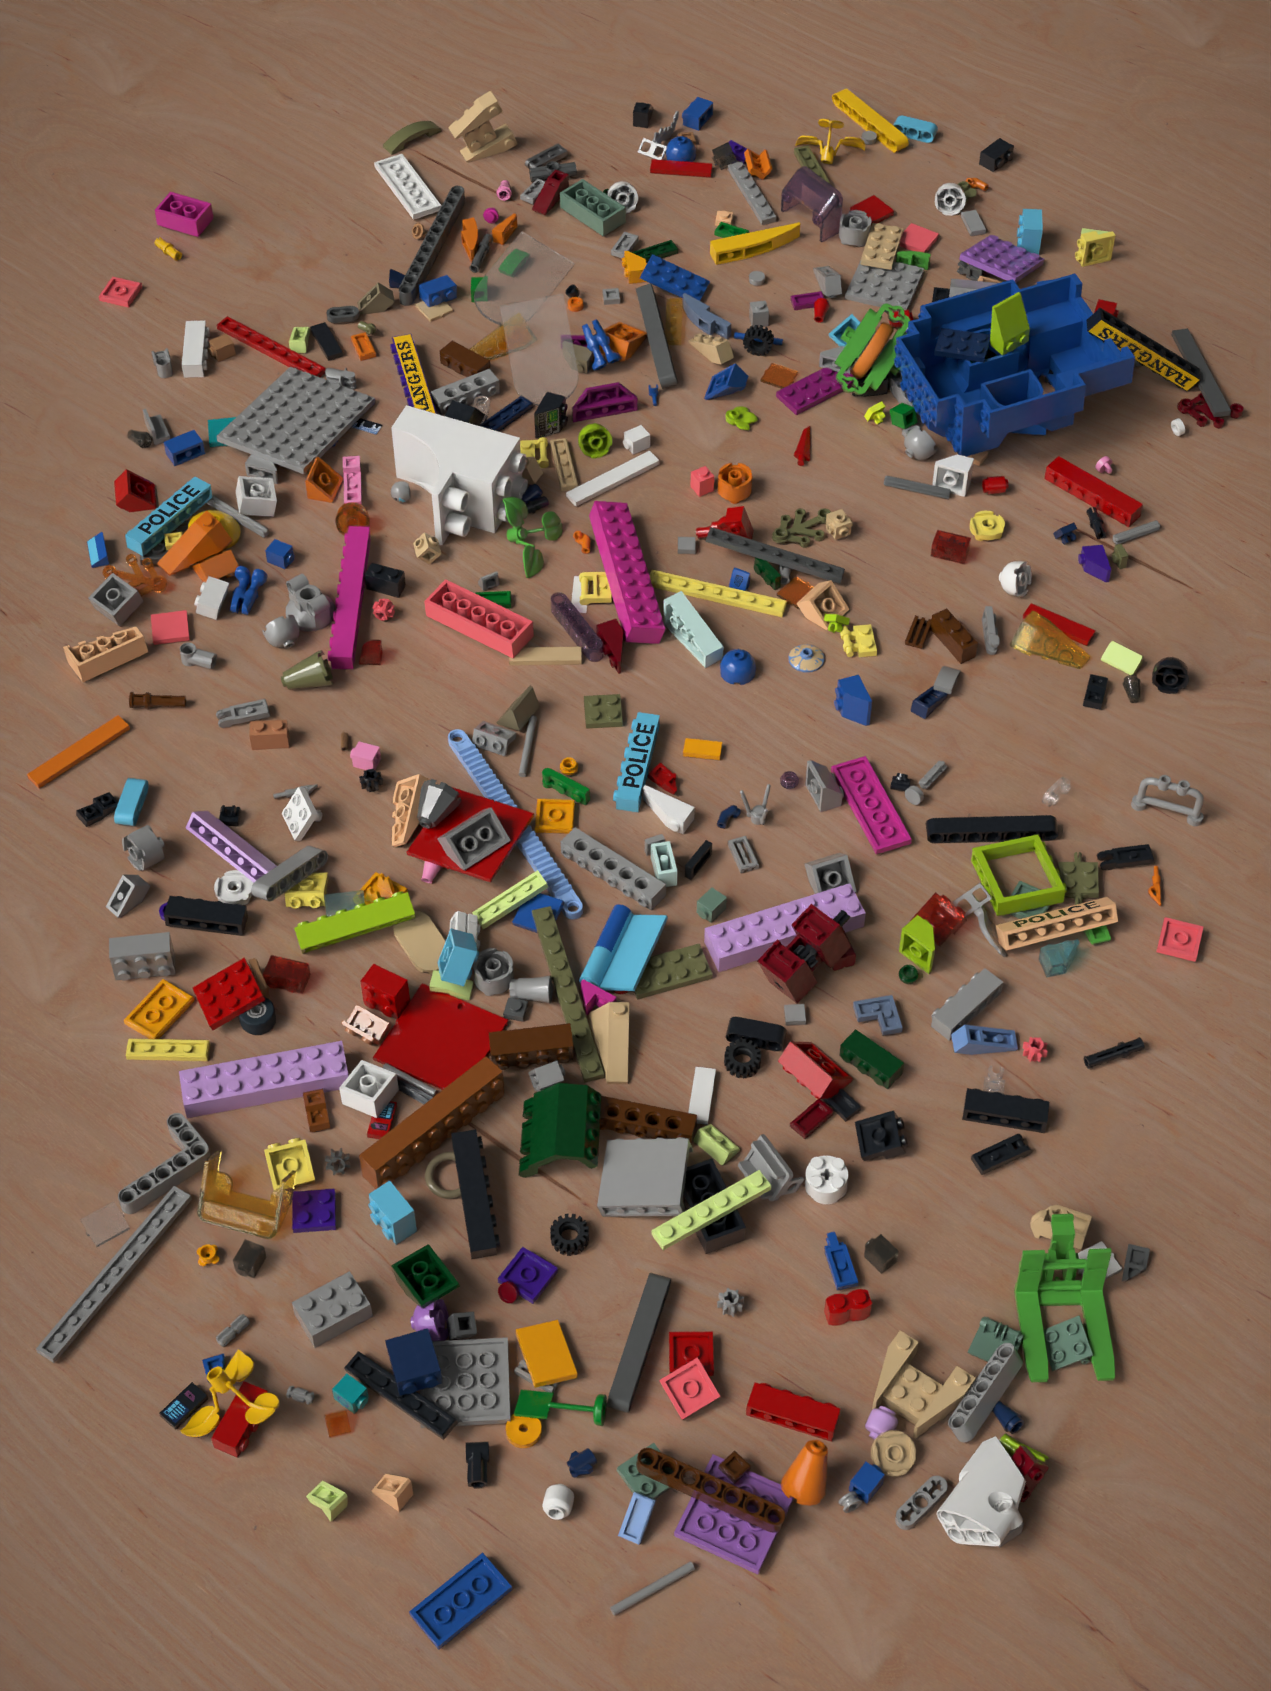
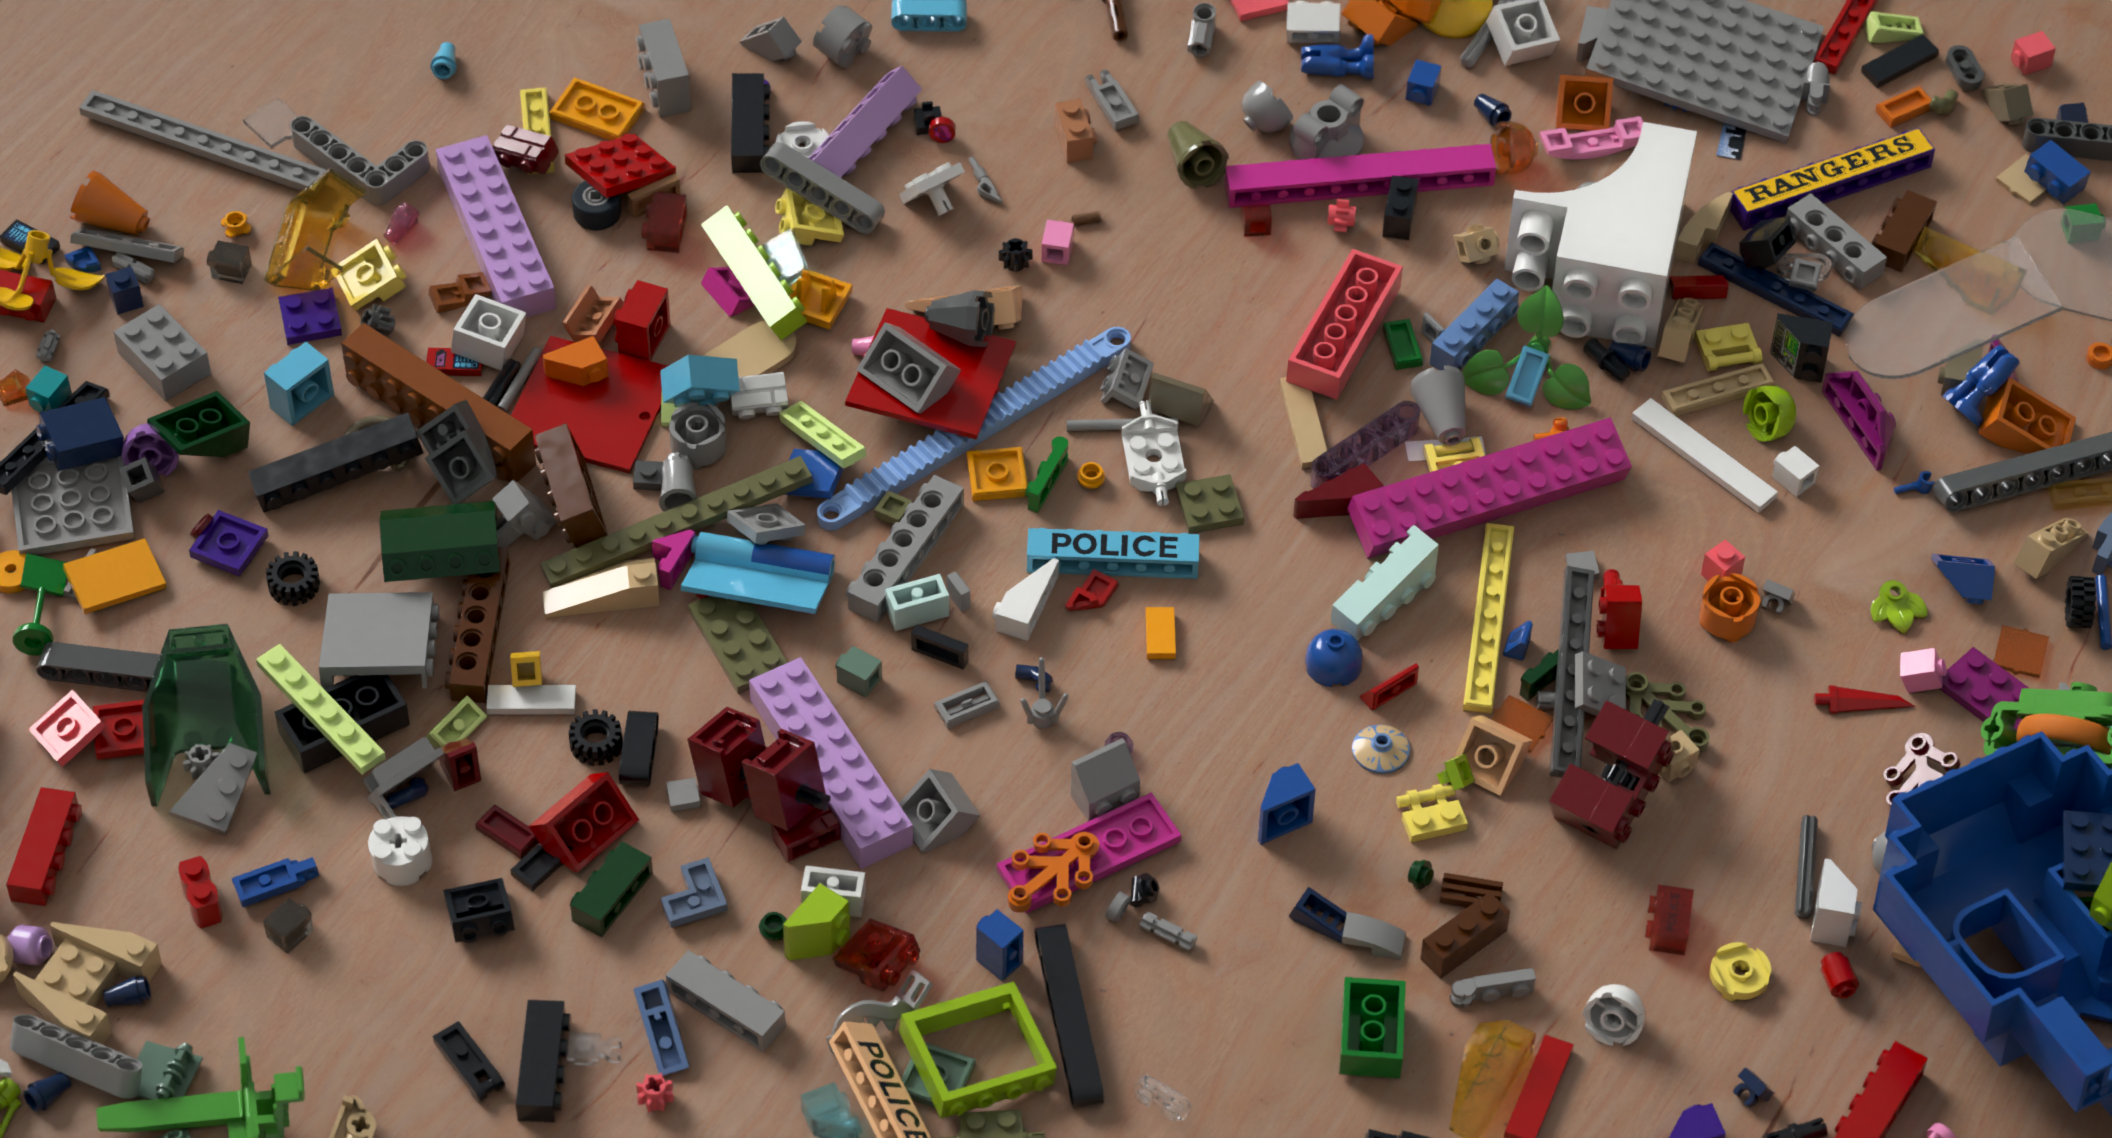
camera: 80 degrees right, 0 degrees up
(81, 1101) = (444, 62): none -> medium azure cone
(170, 1341) = (108, 206): none -> orange cone
(197, 1049) = (525, 150): none -> dark red brick
(210, 1332) = (127, 244): none -> light grey tile
(237, 1140) = (401, 222): none -> clear pink cone
(244, 807) = (942, 130): none -> red tile
(261, 1333) = (124, 290): none -> dark blue brick
(312, 526) = (1492, 109): none -> dark blue cone
(341, 283) = (2033, 53): none -> coral brick
(356, 947) = (726, 290): none -> dark pink slope
(411, 1035) = (577, 363): none -> orange slope
(490, 407) = (1805, 274): none -> light grey tile
(492, 1106) = (458, 452): none -> dark grey slope
(493, 559) = (1475, 326): none -> medium blue brick
(540, 541) = (1527, 376): none -> medium azure tile
(558, 580) = (1442, 402): none -> light grey cone
(575, 730) = (1157, 437): none -> white plate
(576, 872) = (891, 507): none -> olive plate
(582, 939) = (766, 523): none -> light grey plate
(682, 1090) = (526, 668): none -> yellow brick
(685, 1284) = (201, 698): none -> clear green windscreen
(728, 459) = (1779, 593): none -> light grey tile
(752, 1131) = (460, 764): none -> dark red slope
(763, 644) = (1391, 687): none -> red slope
(763, 1291) = (217, 791): none -> light grey wing
(792, 546) = (1597, 682): none -> light grey plate
(793, 412) = (1922, 670): none -> bright pink brick
(853, 531) = (1633, 756): none -> dark red piece
(867, 426) = (1919, 756): none -> plant
(890, 817) = (1054, 867): none -> orange plant
(891, 934) = (843, 882): none -> white brick
(905, 650) = (1420, 874): none -> dark green plate
(927, 1359) = (129, 992): none -> dark blue cone
(944, 851) = (999, 944): none -> blue brick
(1017, 685) = (1372, 1027): none -> green brick

